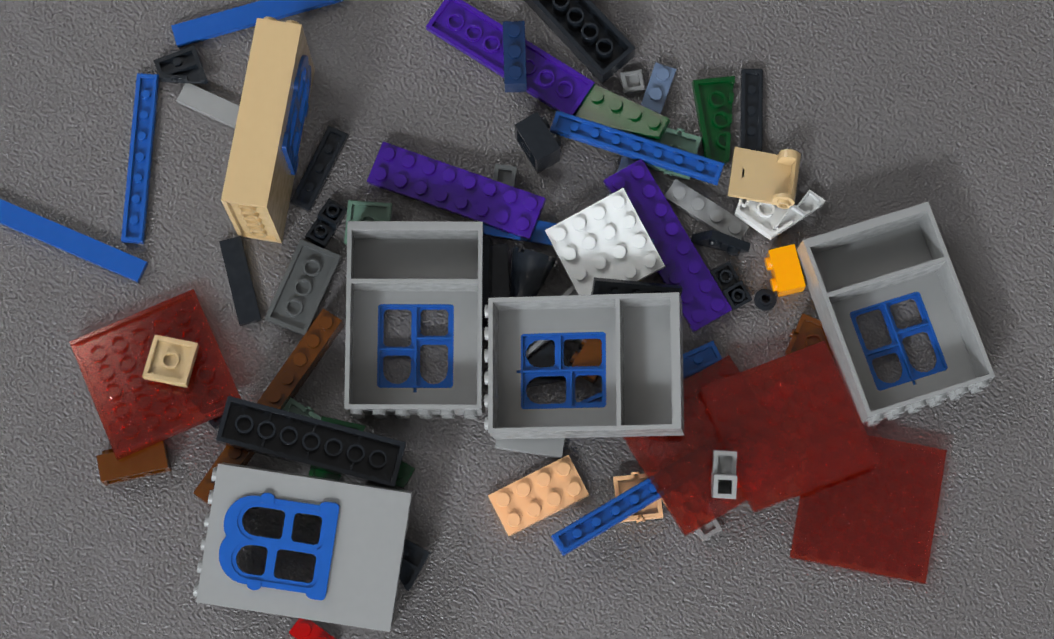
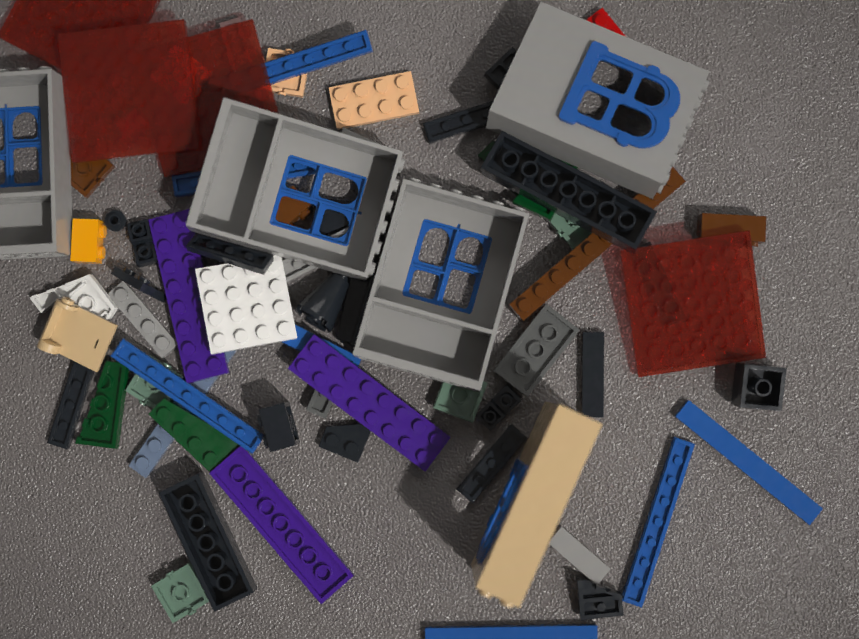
camera: 165 degrees left, 10 degrees up
(70, 311) = (758, 386): none -> black brick
(170, 361) = (677, 308): tan plate -> none
(441, 498) = (457, 123): none -> black tile
(470, 150) = (346, 440): none -> black wing
(514, 56) = (276, 518): dark blue brick -> none
(632, 82) = (173, 465): light grey tile -> none
(724, 474) = (202, 54): light grey brick -> none

